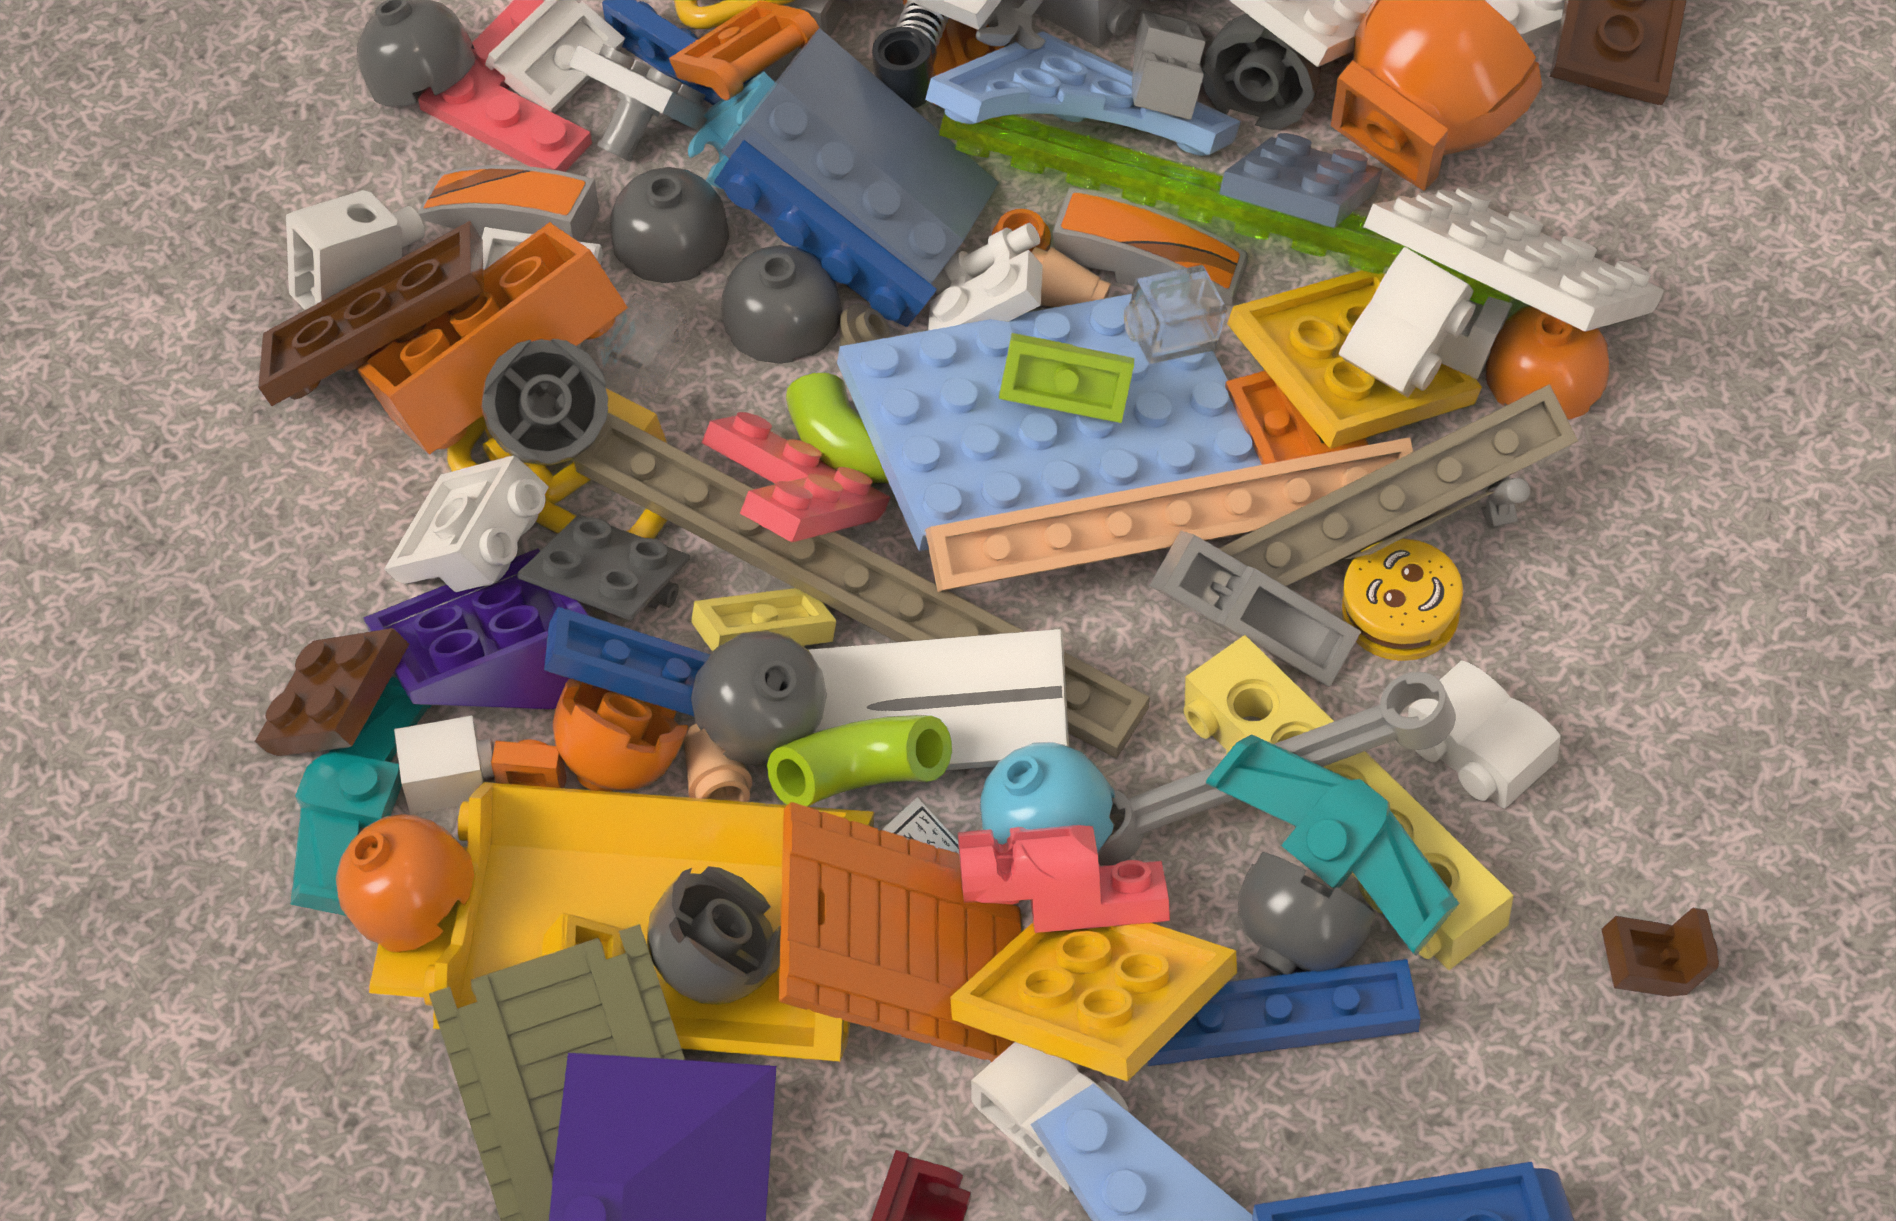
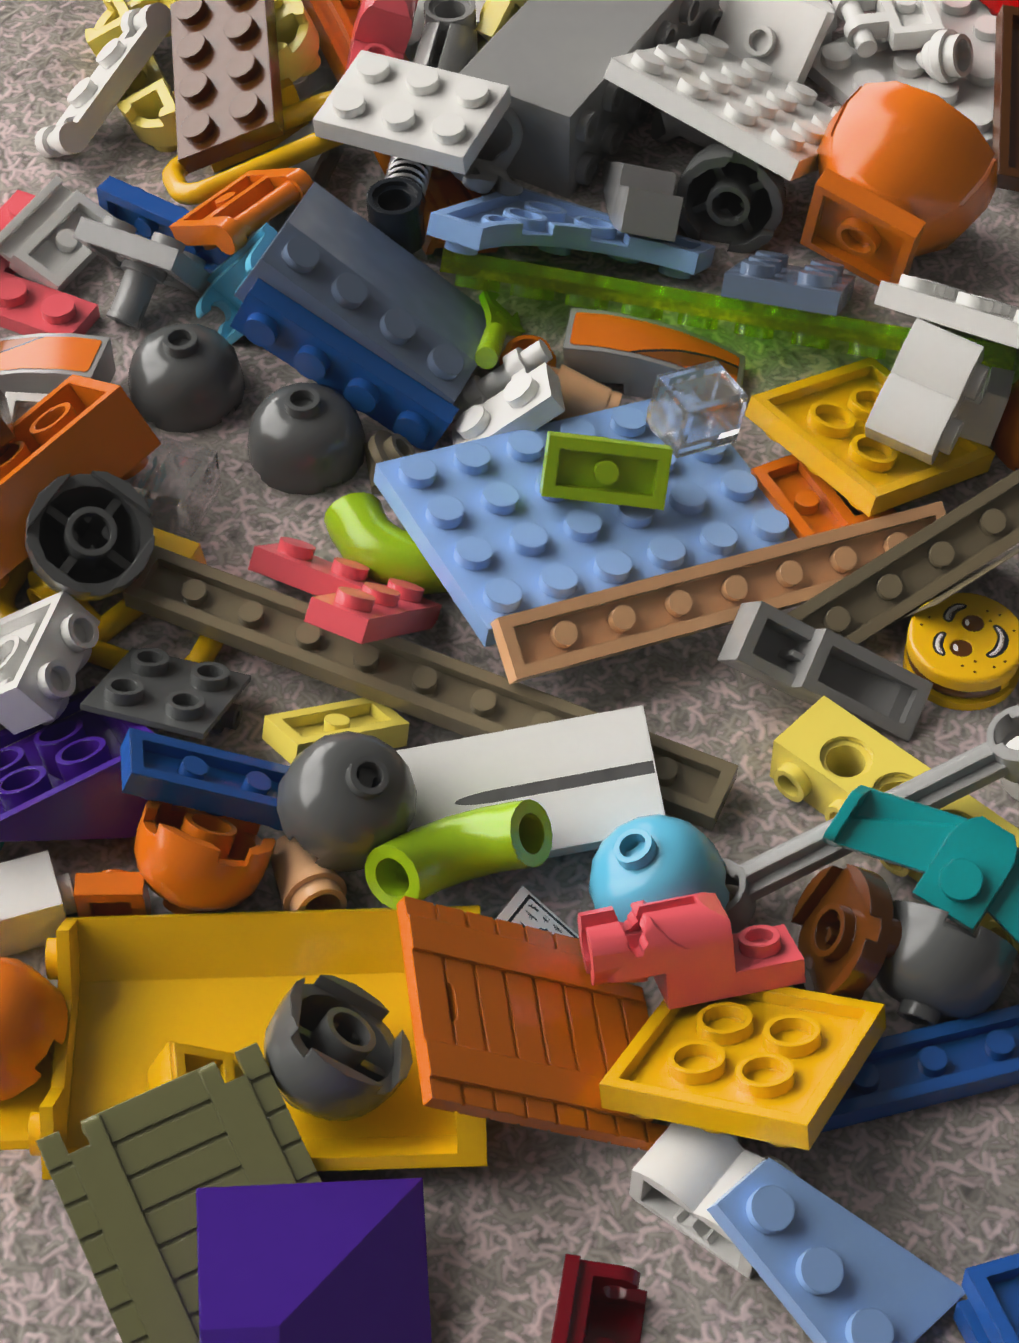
camera: 10 degrees left, 5 degrees down
(996, 193) = (498, 326): none -> lime piece
(1215, 876) = (845, 930): none -> reddish brown plate

